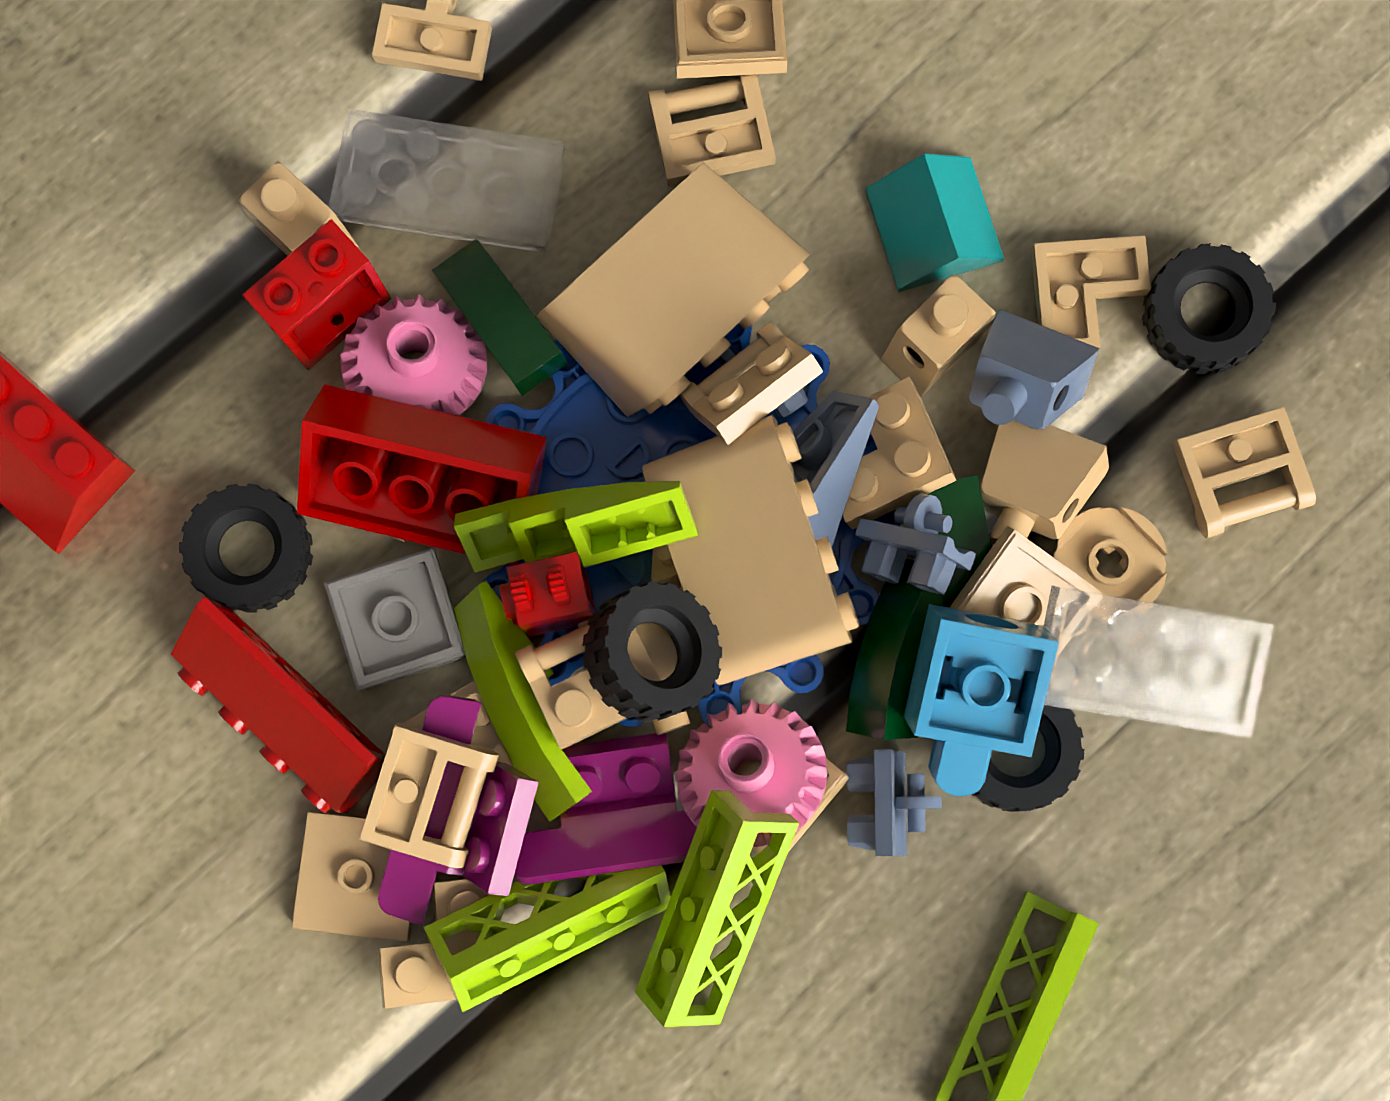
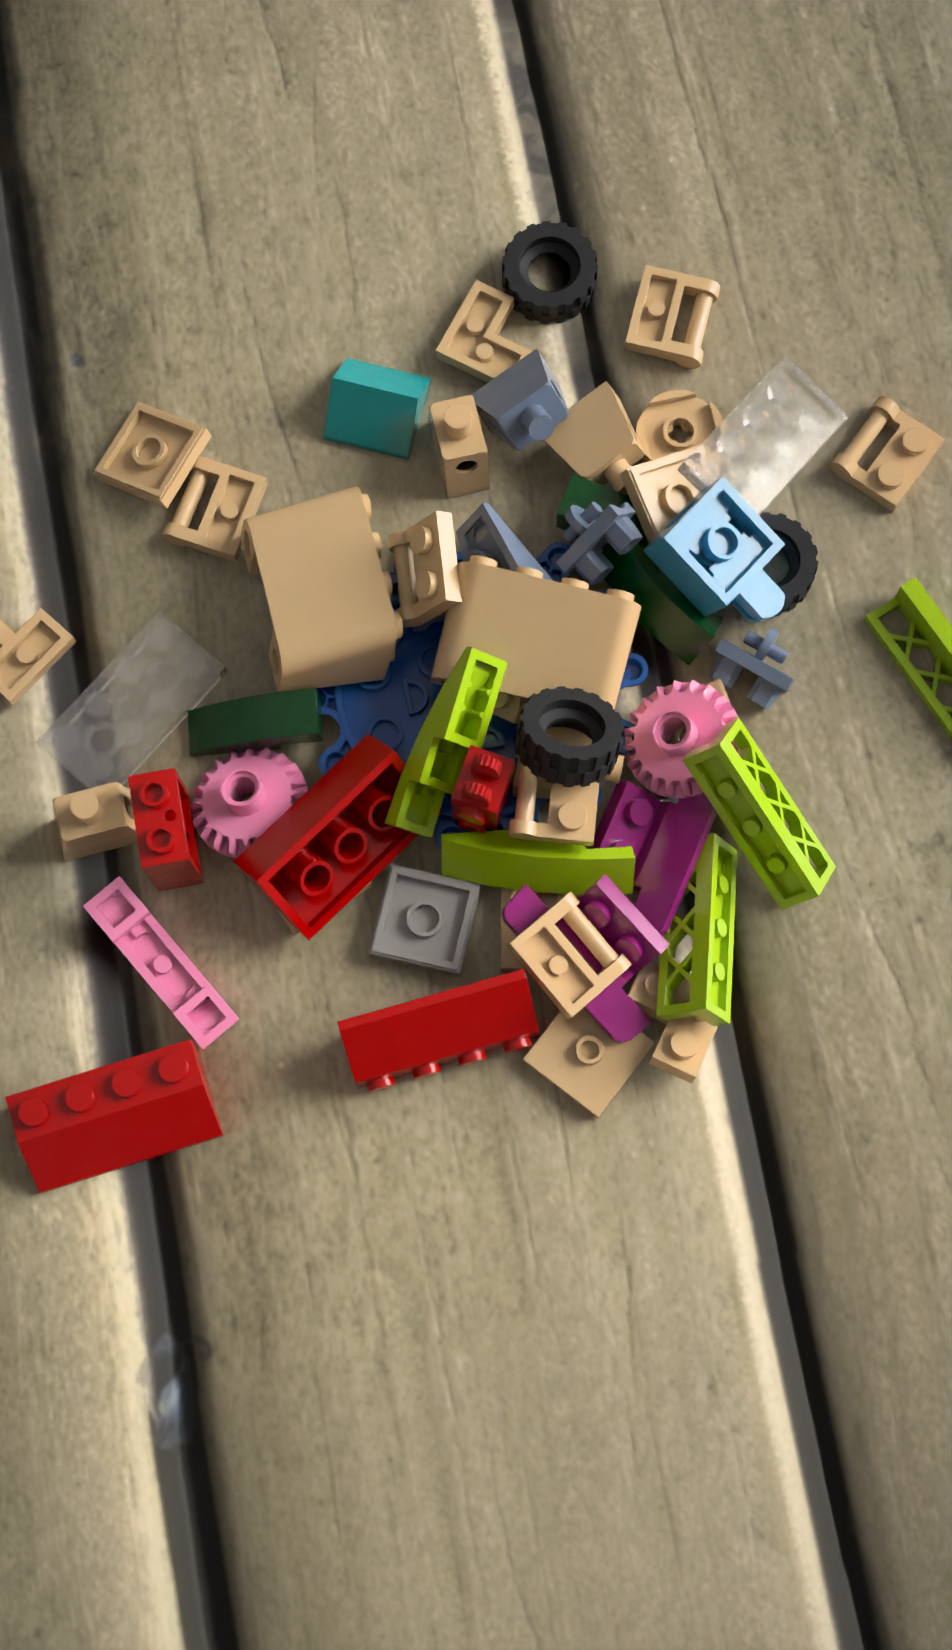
camera: 60 degrees left, 5 degrees down
(193, 382) = (161, 962): none -> bright pink slope
(215, 517) = (282, 969): black tyre -> none
(906, 457) = (534, 512): tan plate -> none
(1233, 824) = (899, 461): none -> tan plate

